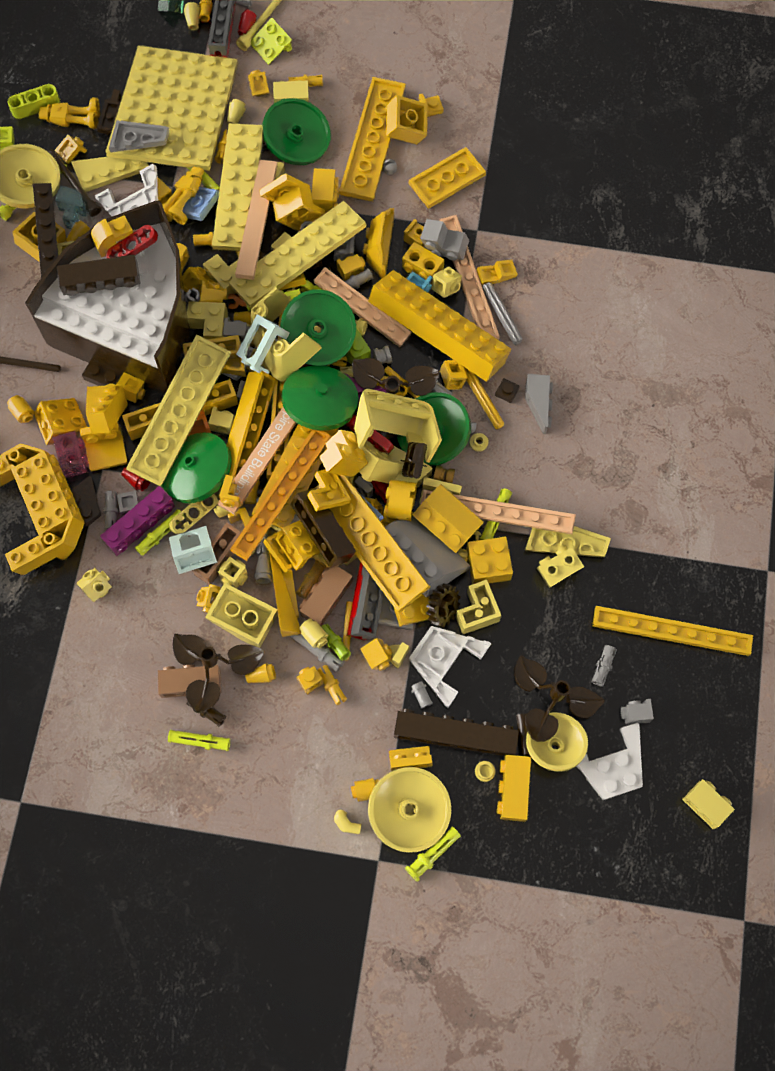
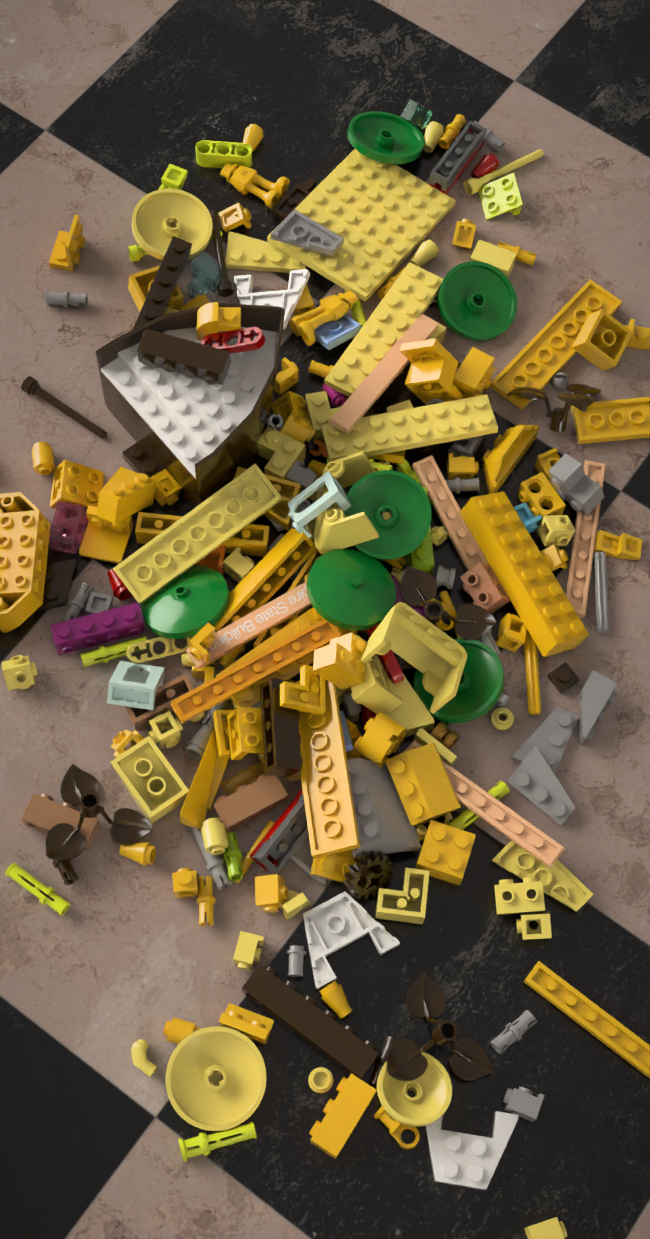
camera: 25 degrees right, 5 degrees down
(49, 75) = (253, 135): none -> yellow cone
(157, 32) = (385, 137): none -> green dish
(227, 255) = (337, 397): none -> dark pink pin
(383, 705) = (248, 951): none -> light yellow brick
(404, 193) = (558, 418): none -> dark brown plant
(414, 460) = (418, 703): dark brown arm -> none
(416, 350) = (484, 587): none -> nougat brick
(456, 302) = (555, 557): none -> yellow bracket
(463, 706) = (335, 998): none -> yellow cone
(521, 444) = (550, 738): none -> light grey wing
(533, 478) = (540, 785): none -> light grey wing
(557, 776) = (396, 1128): none -> yellow connector
(587, 578) = (541, 932): none -> light yellow brick

